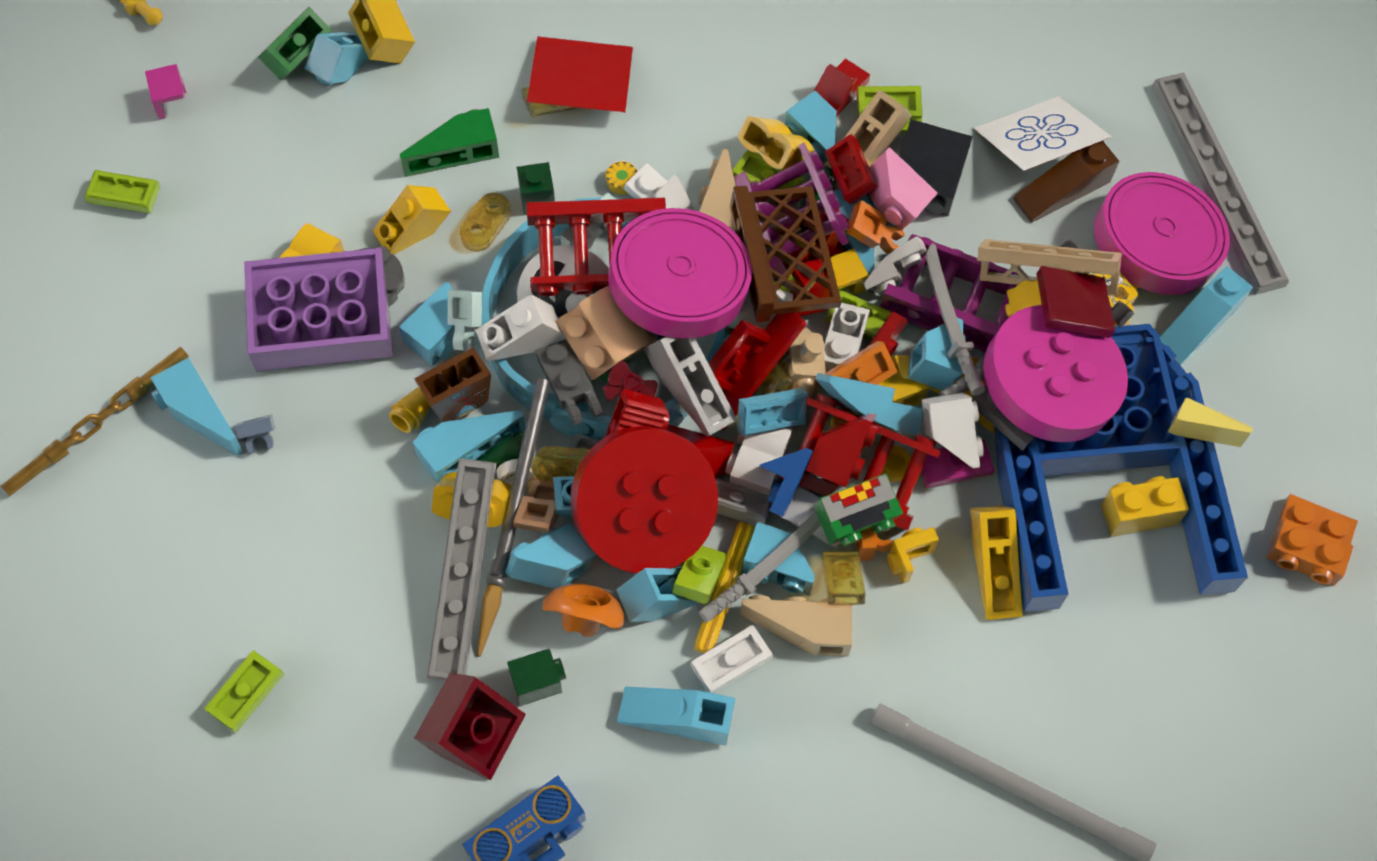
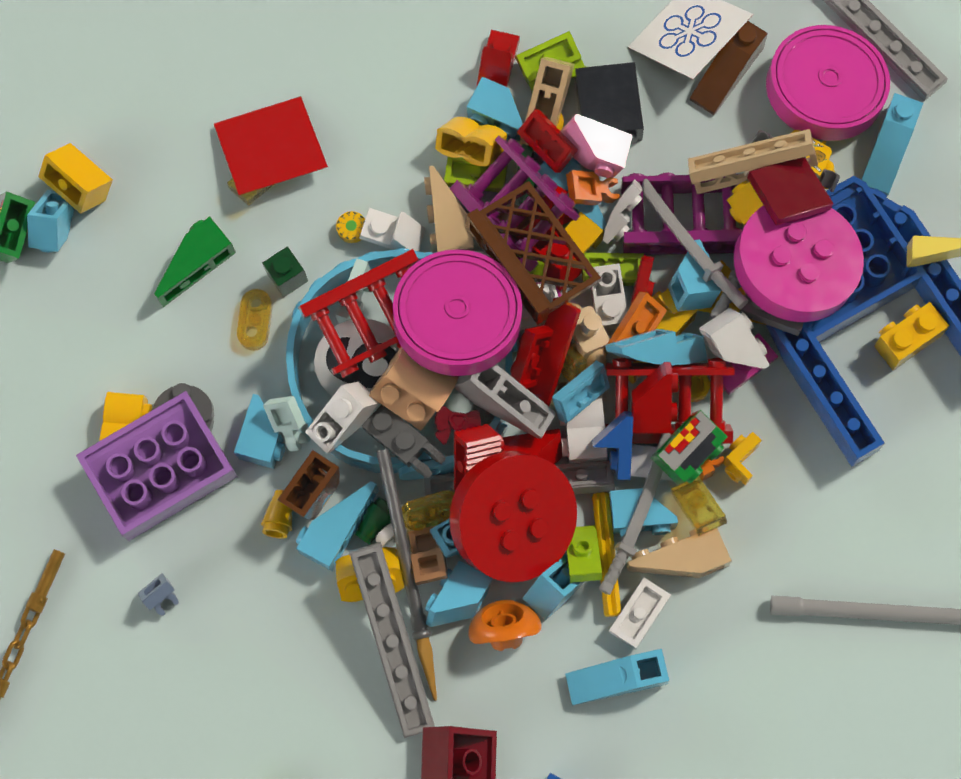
camera: 15 degrees left, 10 degrees up
(192, 405) = (91, 595): medium azure slope -> none
(411, 218) = (192, 346): yellow slope -> none
(536, 676) = (492, 698): dark green brick -> none
(997, 560) = (812, 433): yellow slope -> none

